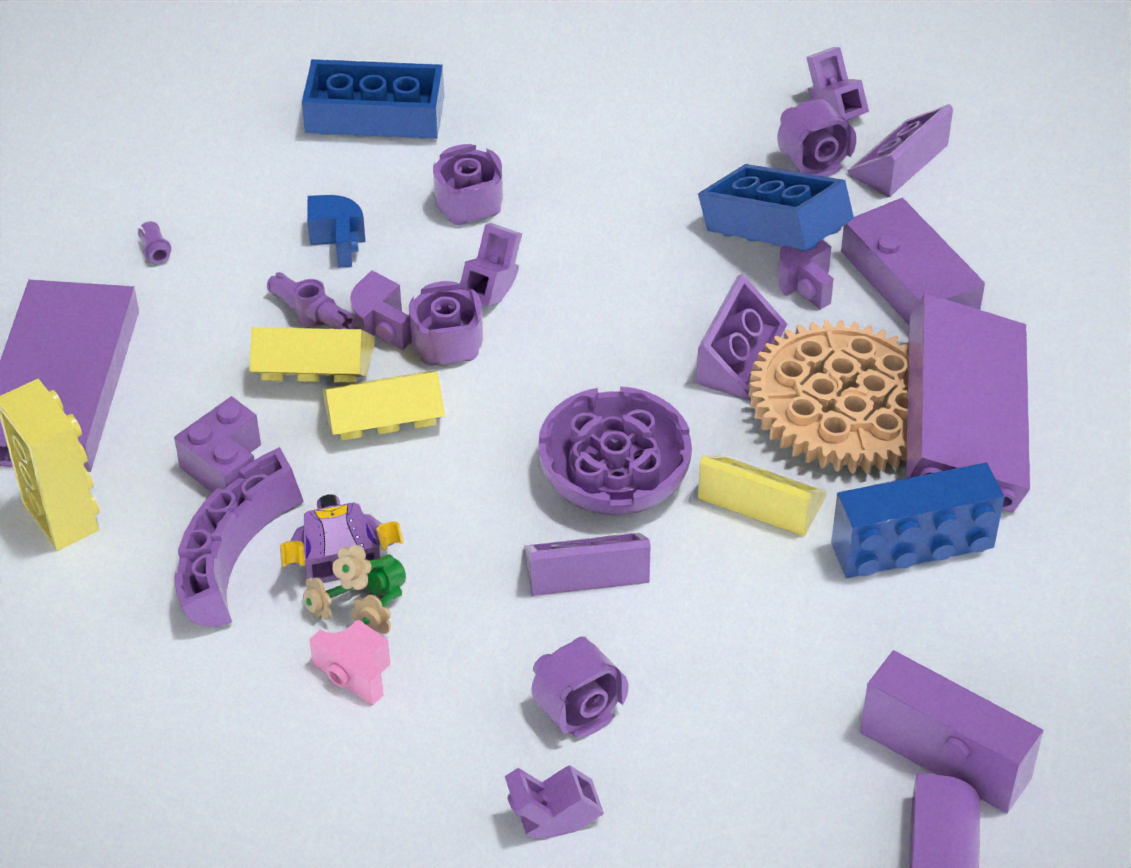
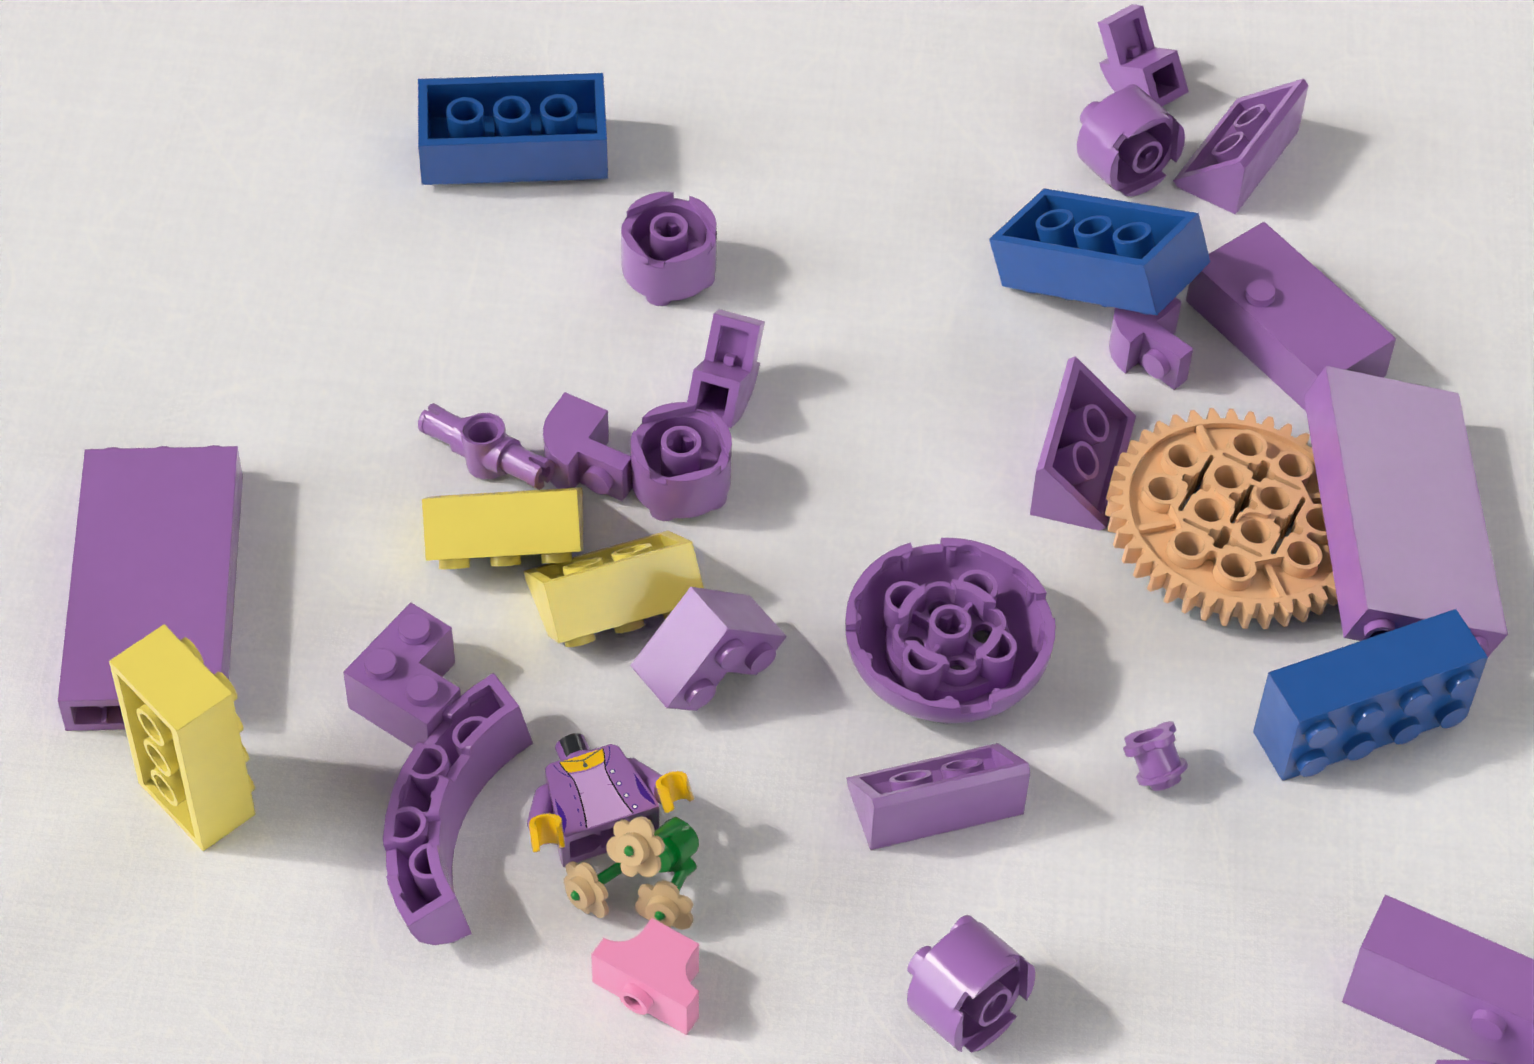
camera: 10 degrees left, 5 degrees up
(155, 246) = (250, 380): medium lavender pin -> none
(338, 222) = (497, 318): blue brick -> none
(433, 440) = (702, 642): none -> medium lavender brick
(751, 550) = (1156, 756): none -> medium lavender brick
(759, 493) = (1148, 671): light yellow slope -> none

